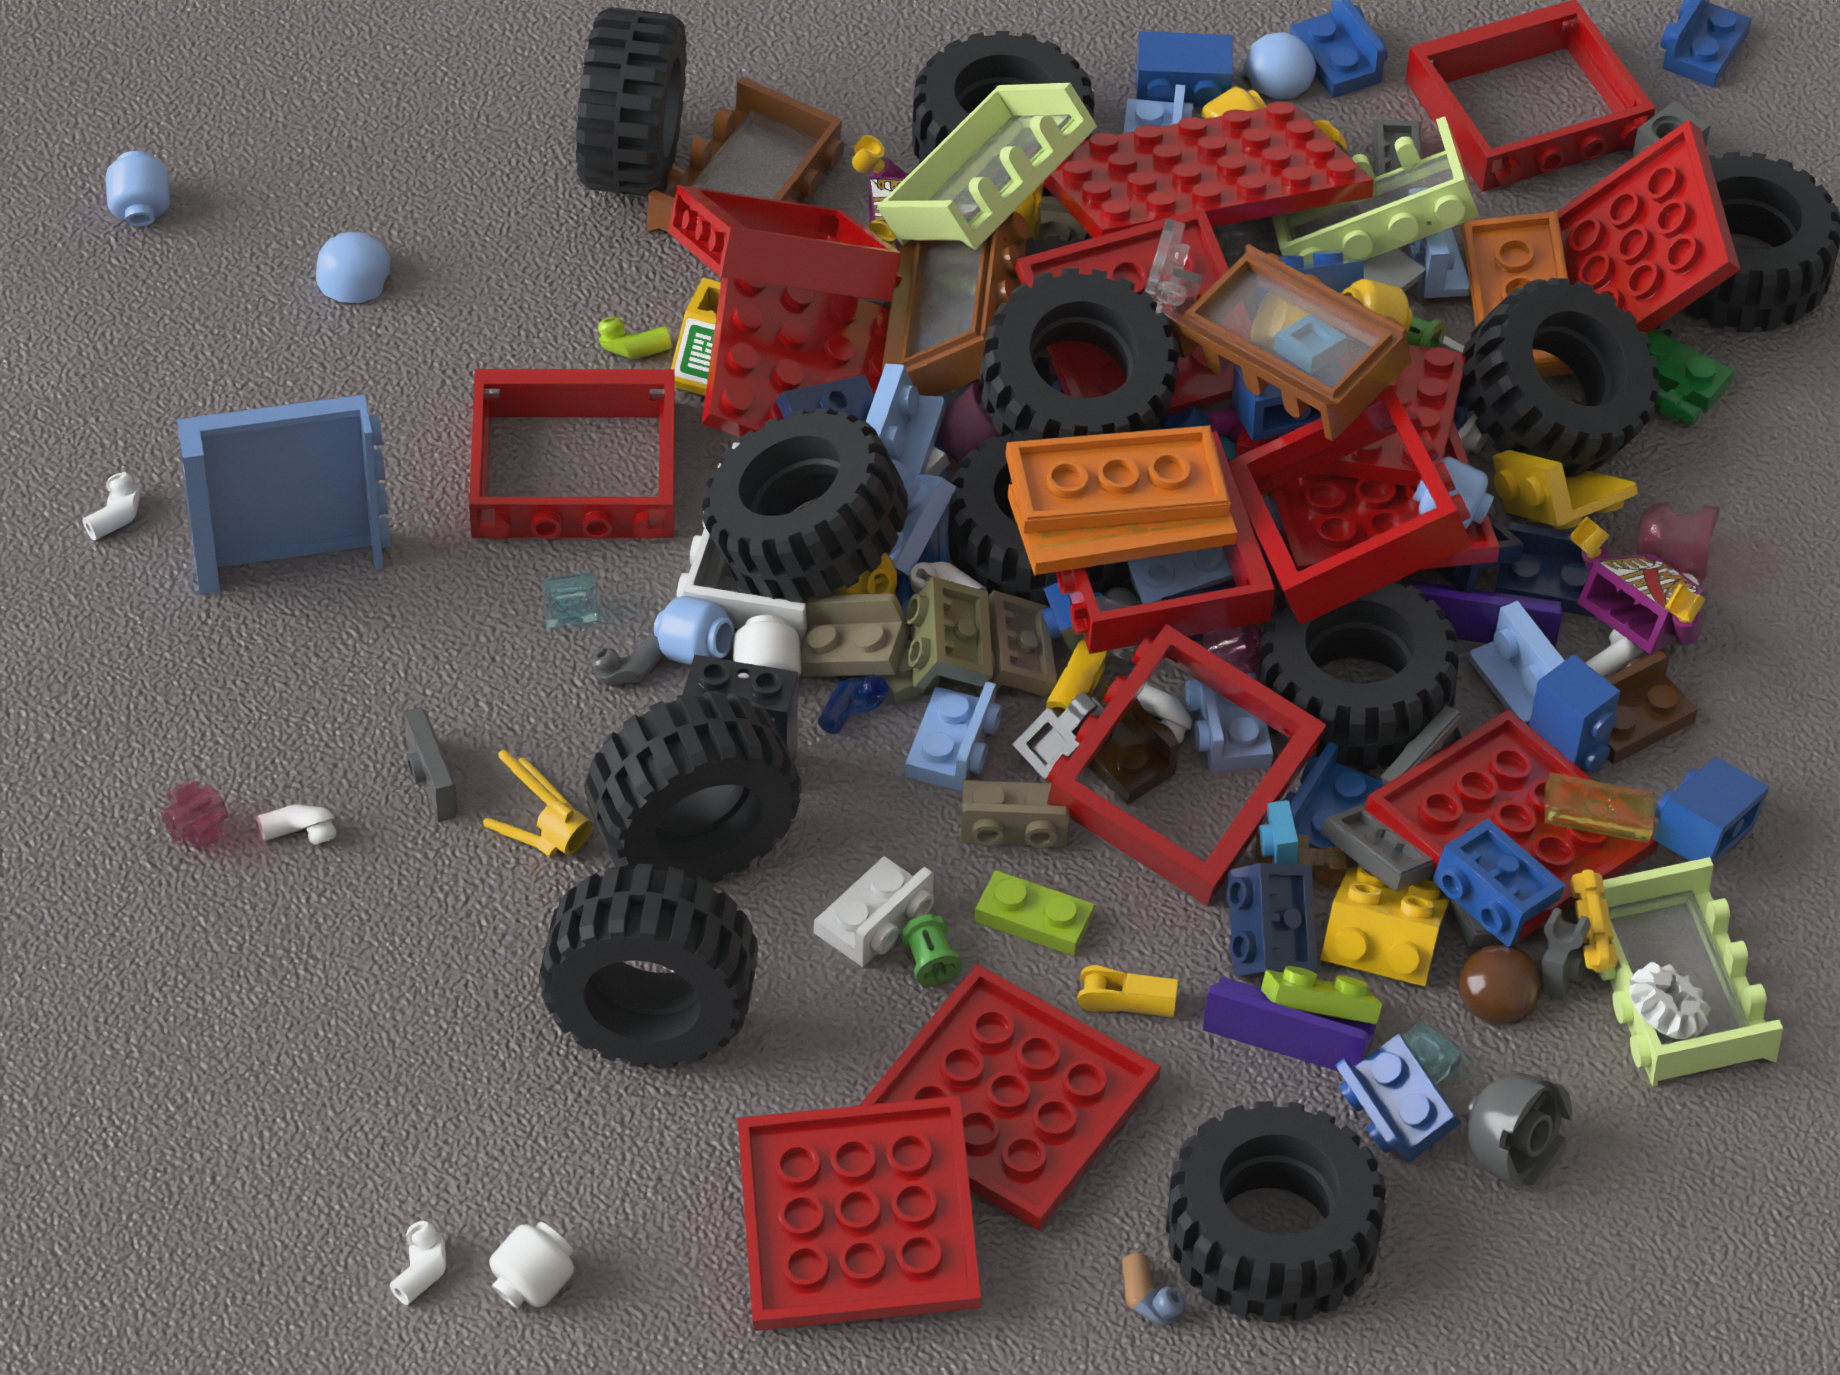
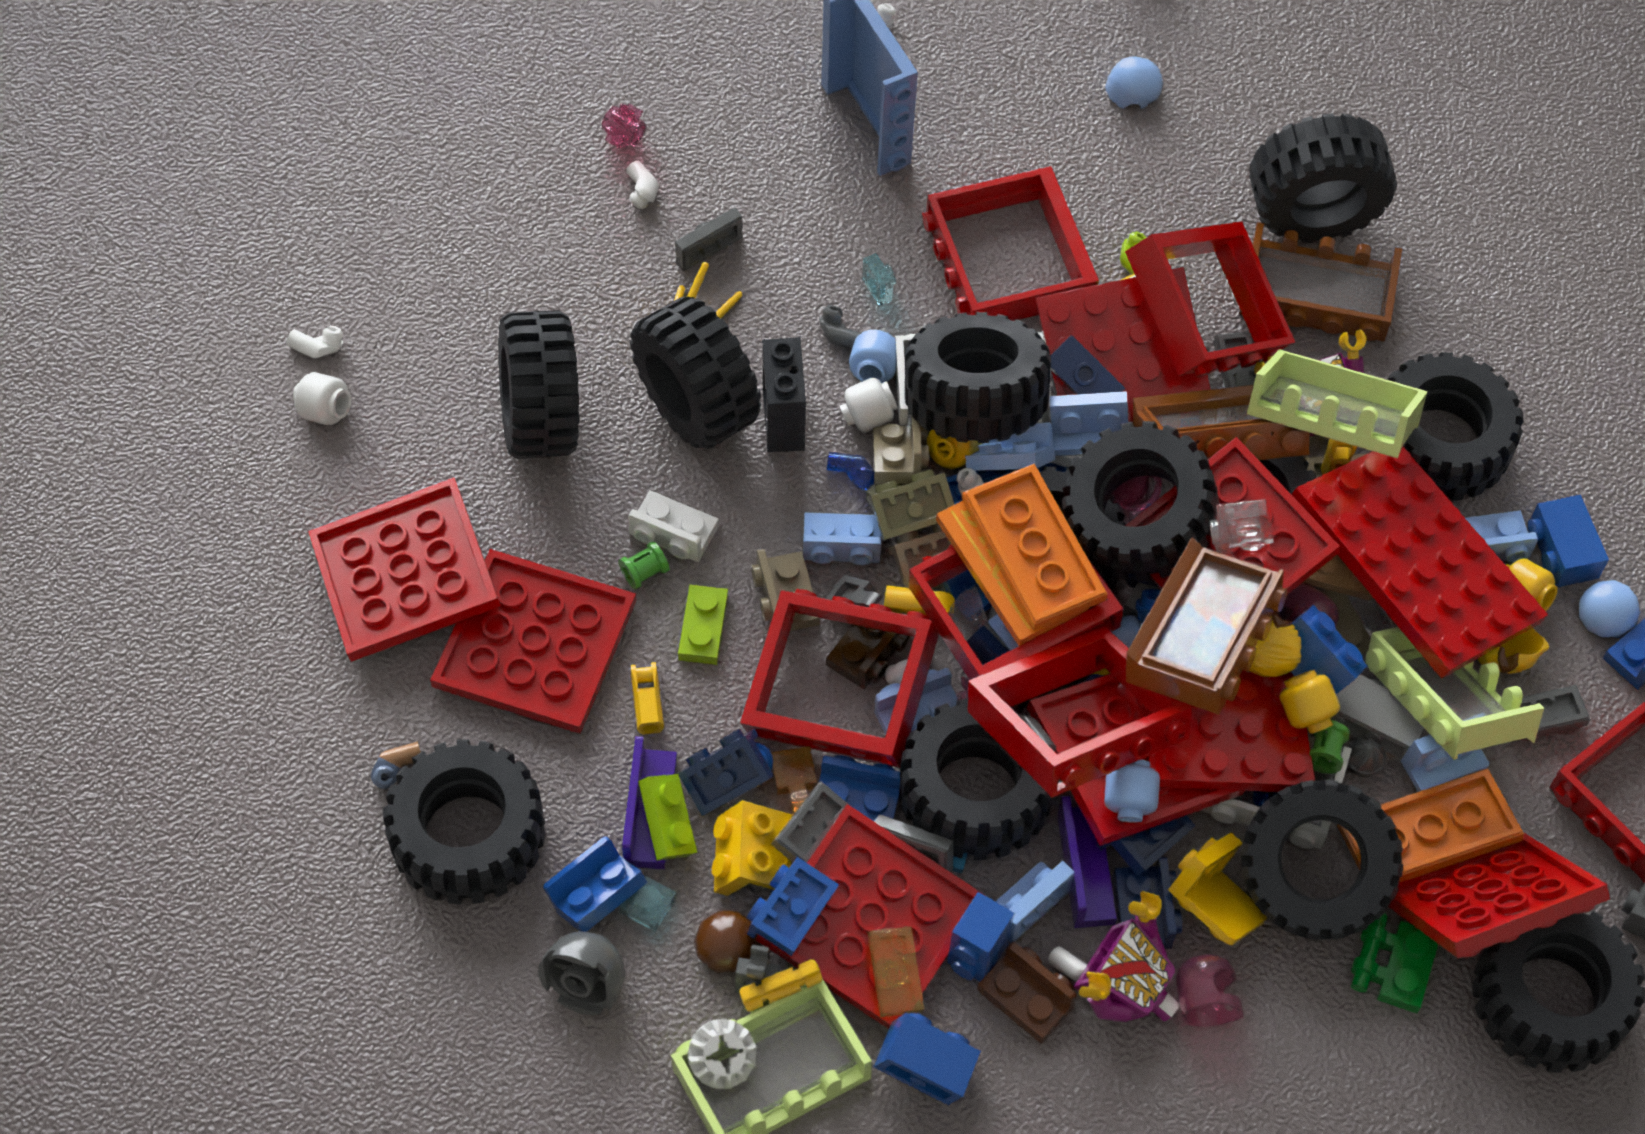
camera: 75 degrees right, 10 degrees up
(1279, 836) = (792, 755): dark azure plate -> none

